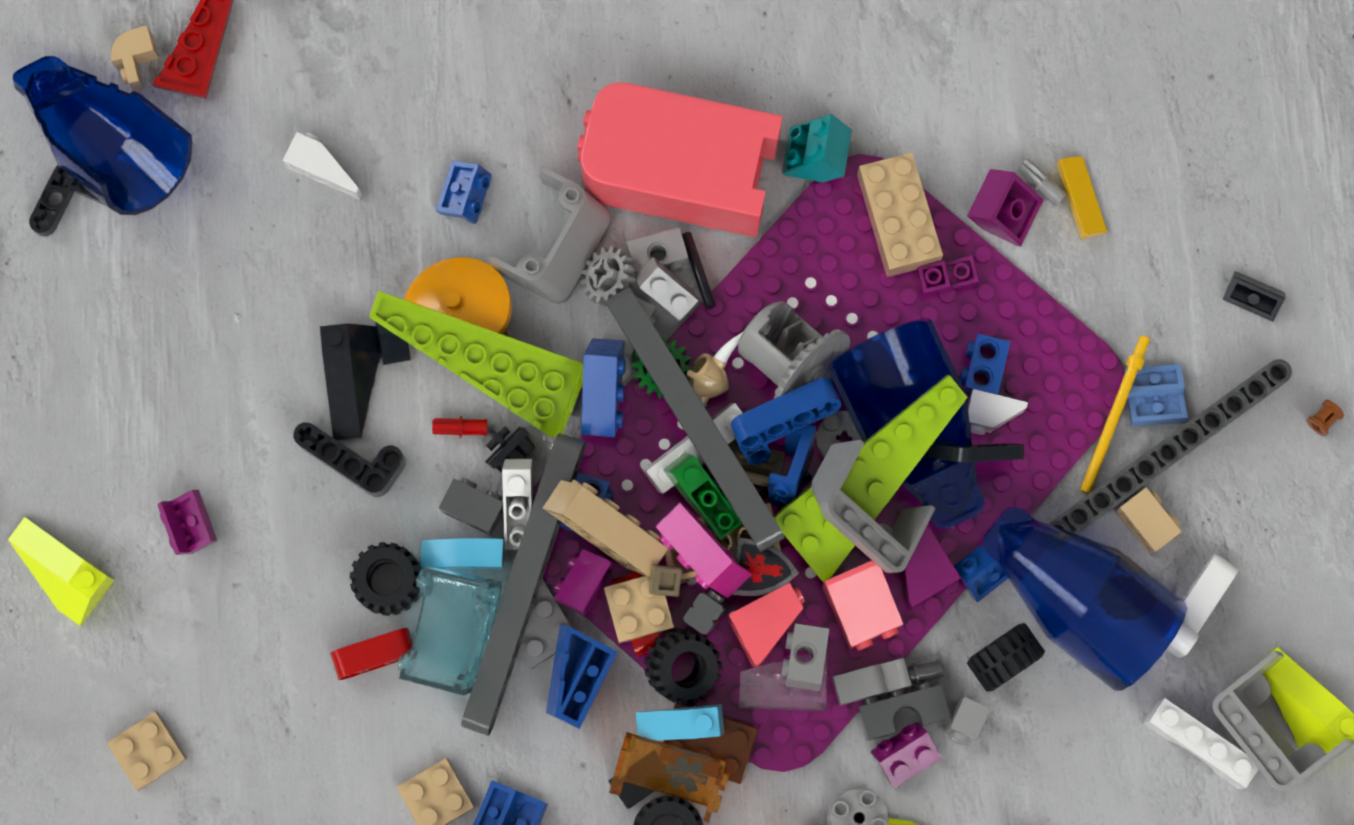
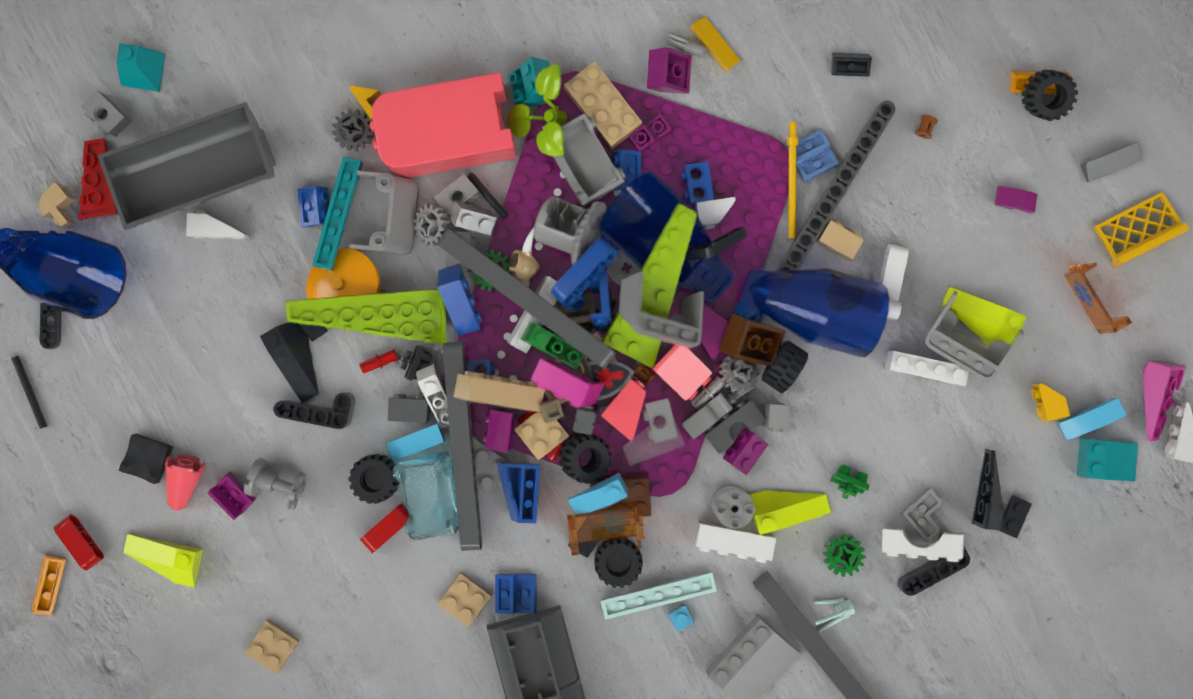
camera: 25 degrees left, 10 degrees up
(96, 426) = (145, 458): none -> black brick
(130, 474) = (181, 479): none -> coral cone
(245, 522) = (262, 479): none -> light grey piece
(326, 70) = (187, 165): none -> dark grey piece
(490, 213) = (337, 214): none -> teal plate
(552, 124) = (352, 137): none -> dark grey gear
(592, 79) = (365, 97): none -> yellow slope
(809, 588) = (644, 374): none -> dark orange bush
(814, 225) = (518, 120): none -> lime plant
(844, 272) = (586, 162): none -> light grey windscreen
(886, 651) = (707, 393): none -> light grey axle
(896, 305) = (630, 164): none -> blue bracket
(939, 642) = (738, 374): none -> light grey gear
(975, 601) = (752, 340): none -> reddish brown brick

